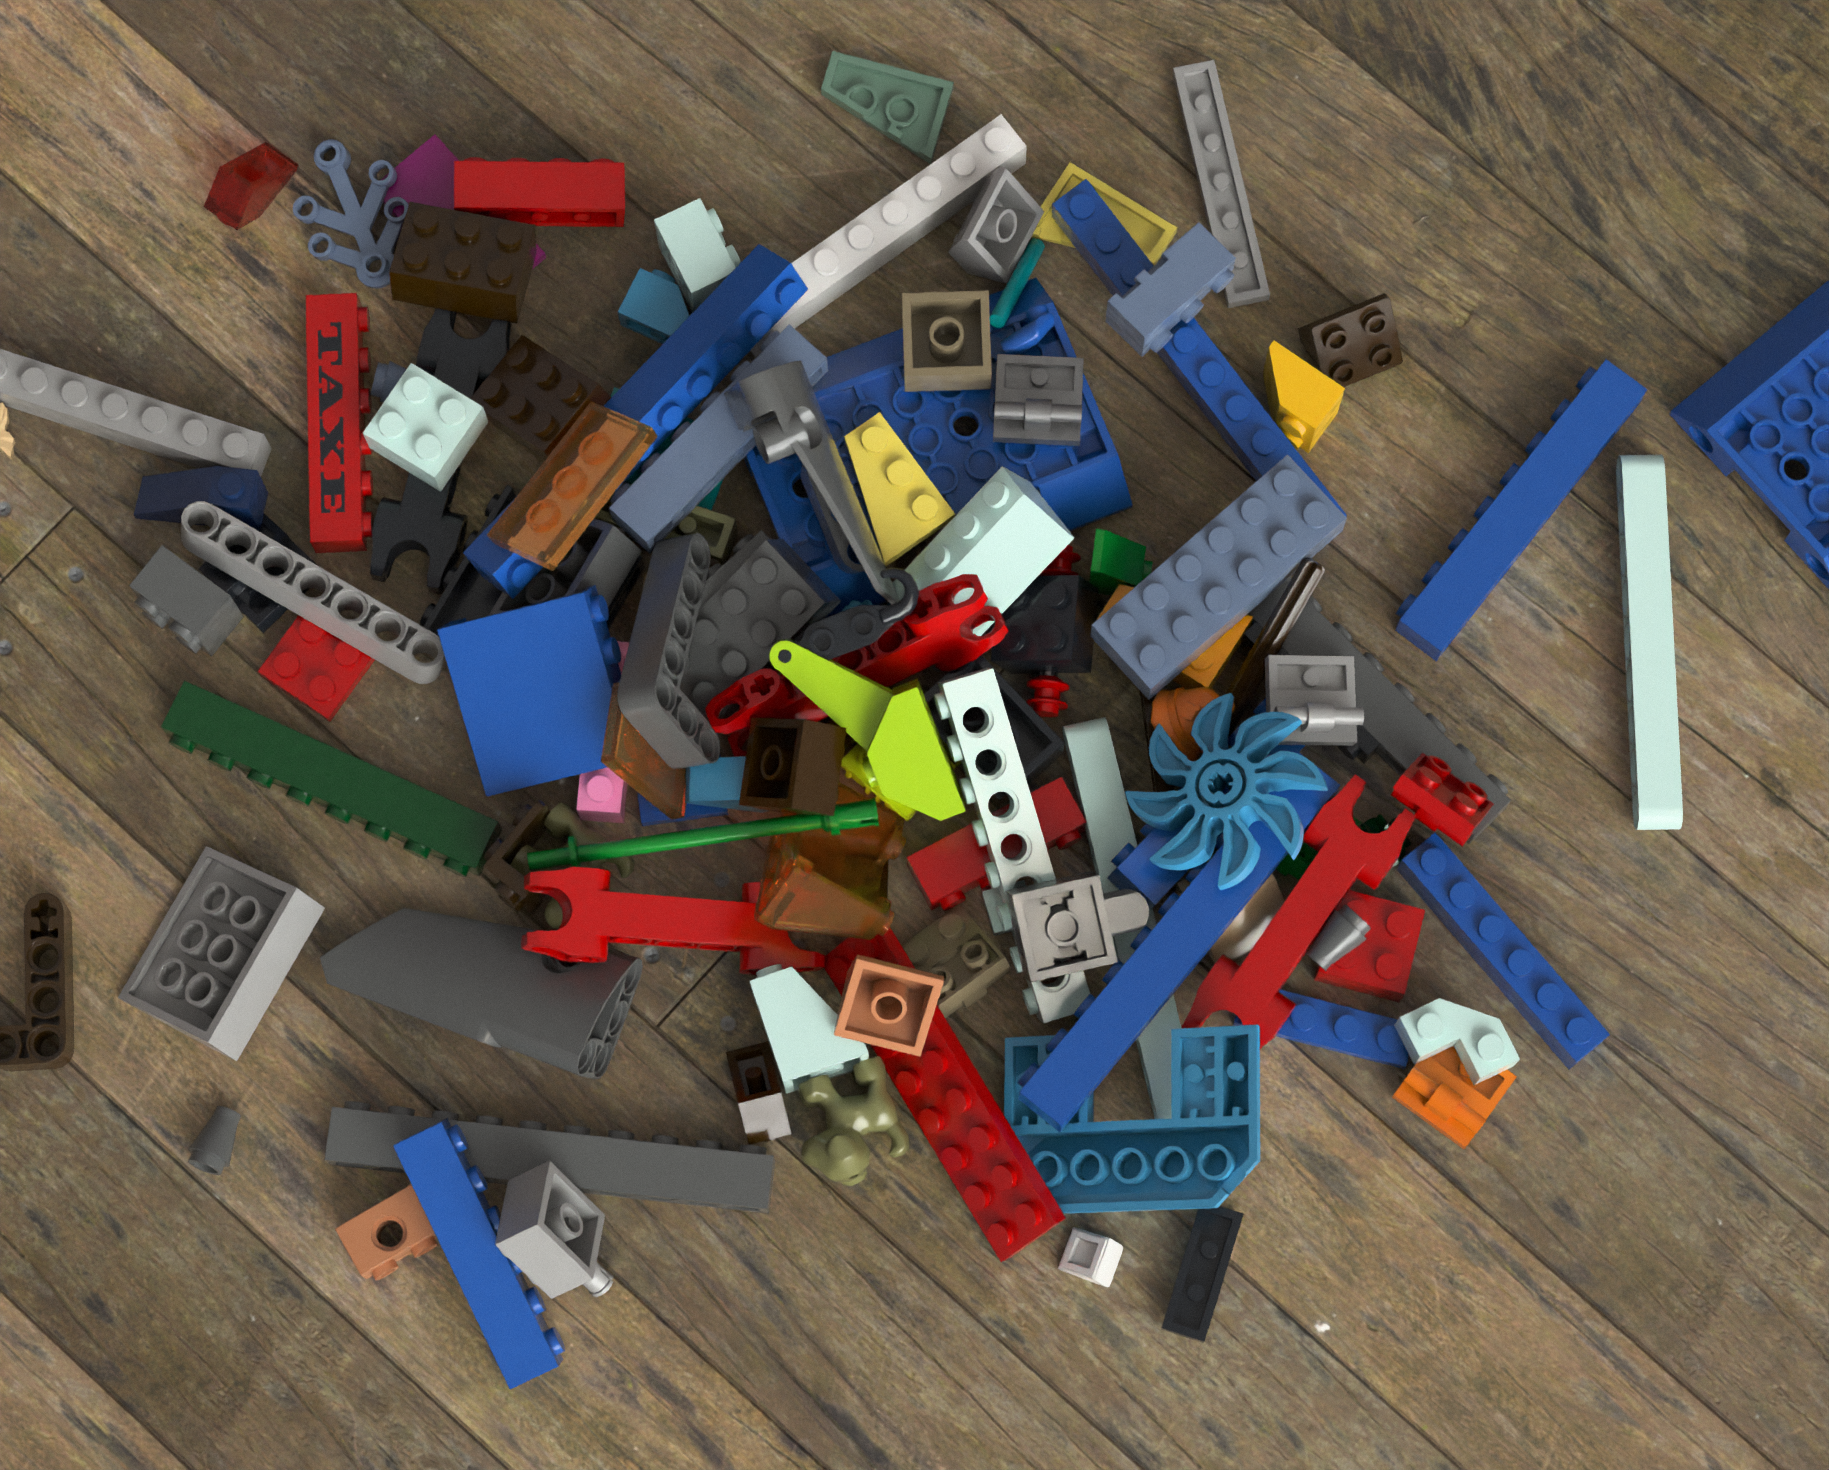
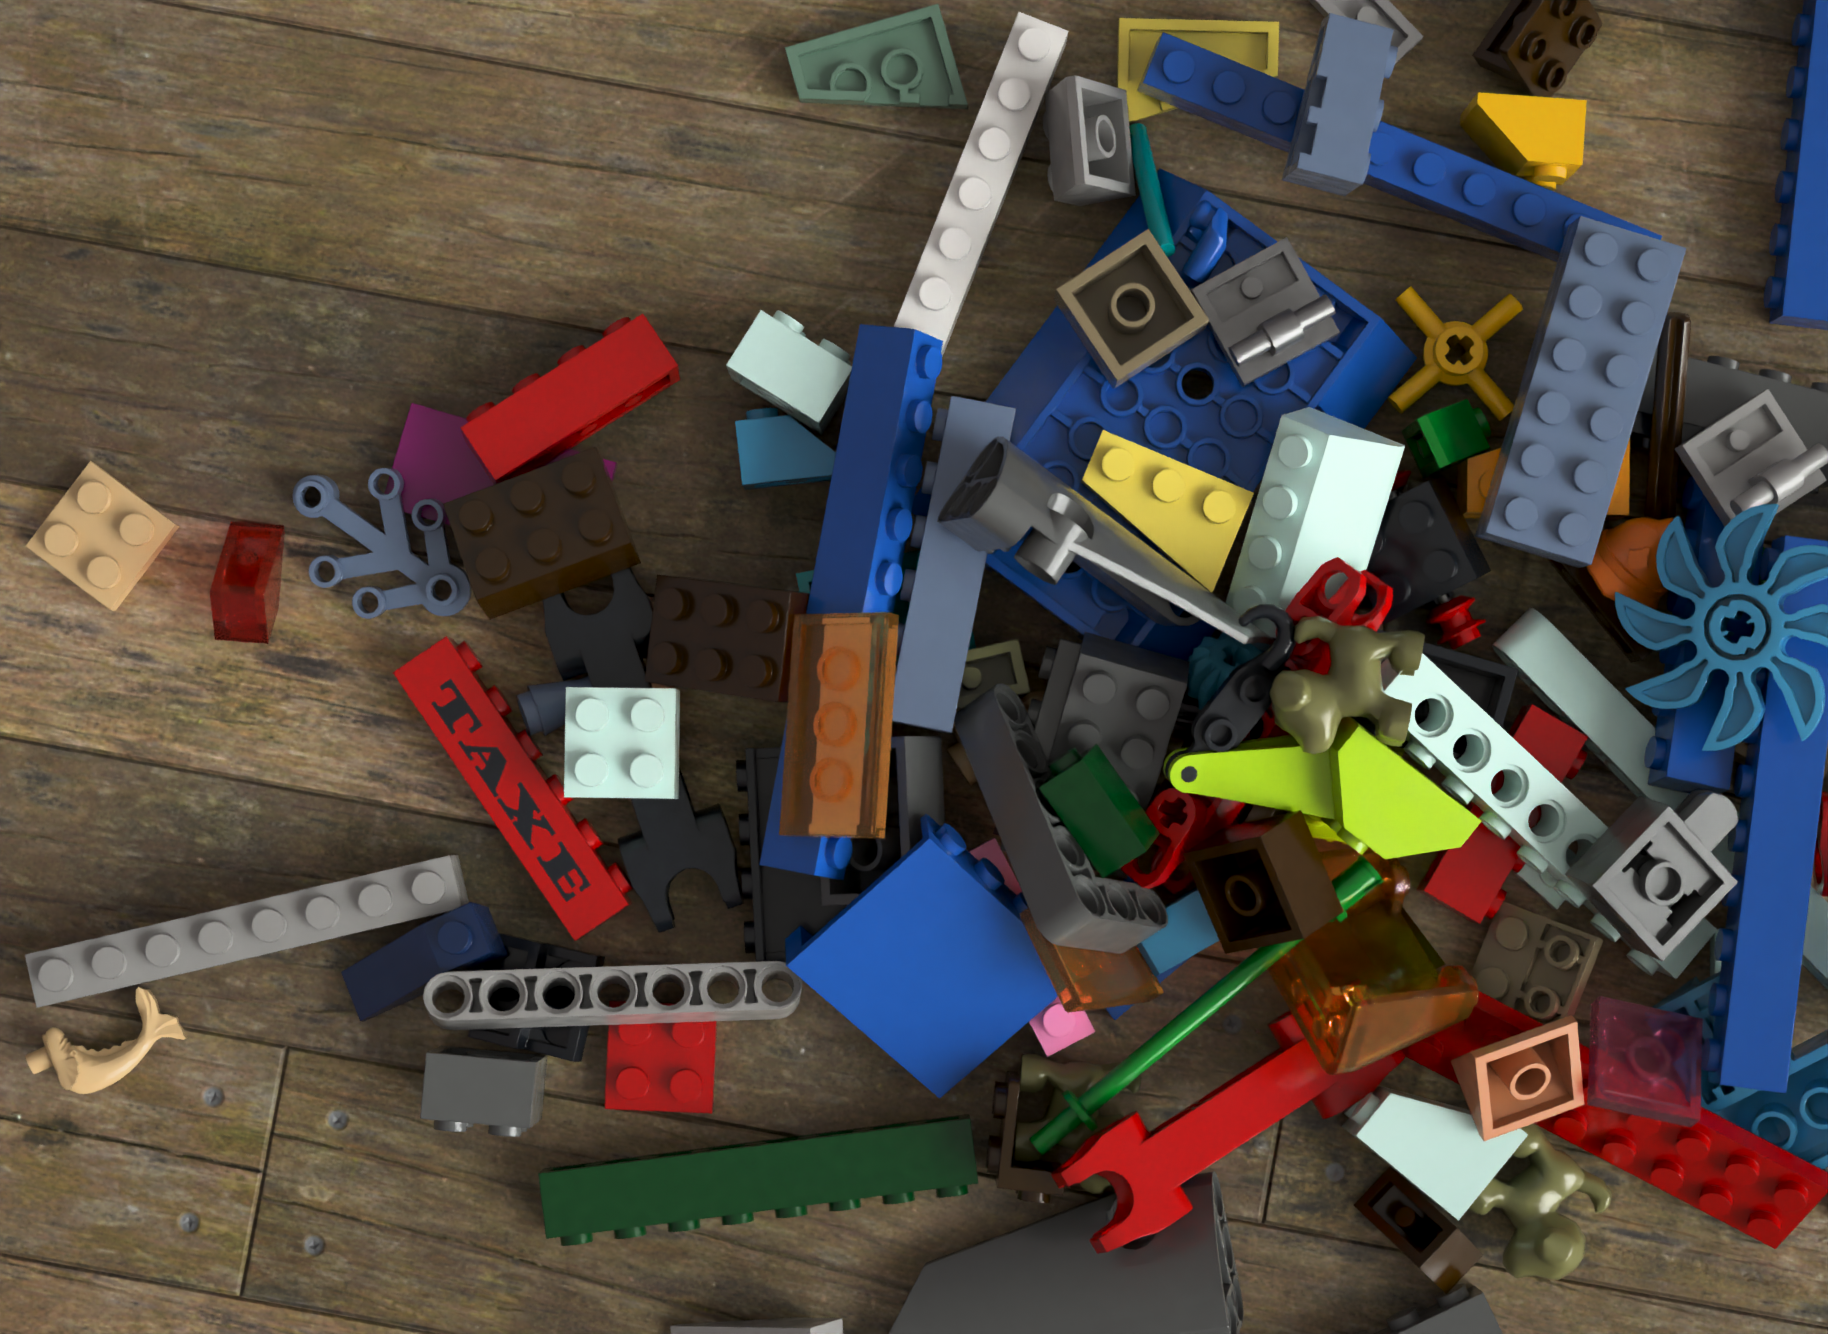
camera: 35 degrees left, 10 degrees up
(175, 101) = (102, 536): none -> tan plate
(711, 648) = (1098, 809): none -> dark green brick
(896, 655) = (1314, 703): none -> olive animal
(981, 1055) = (1645, 1061): none -> clear pink plate
(1156, 500) = (1435, 348): none -> yellow bar

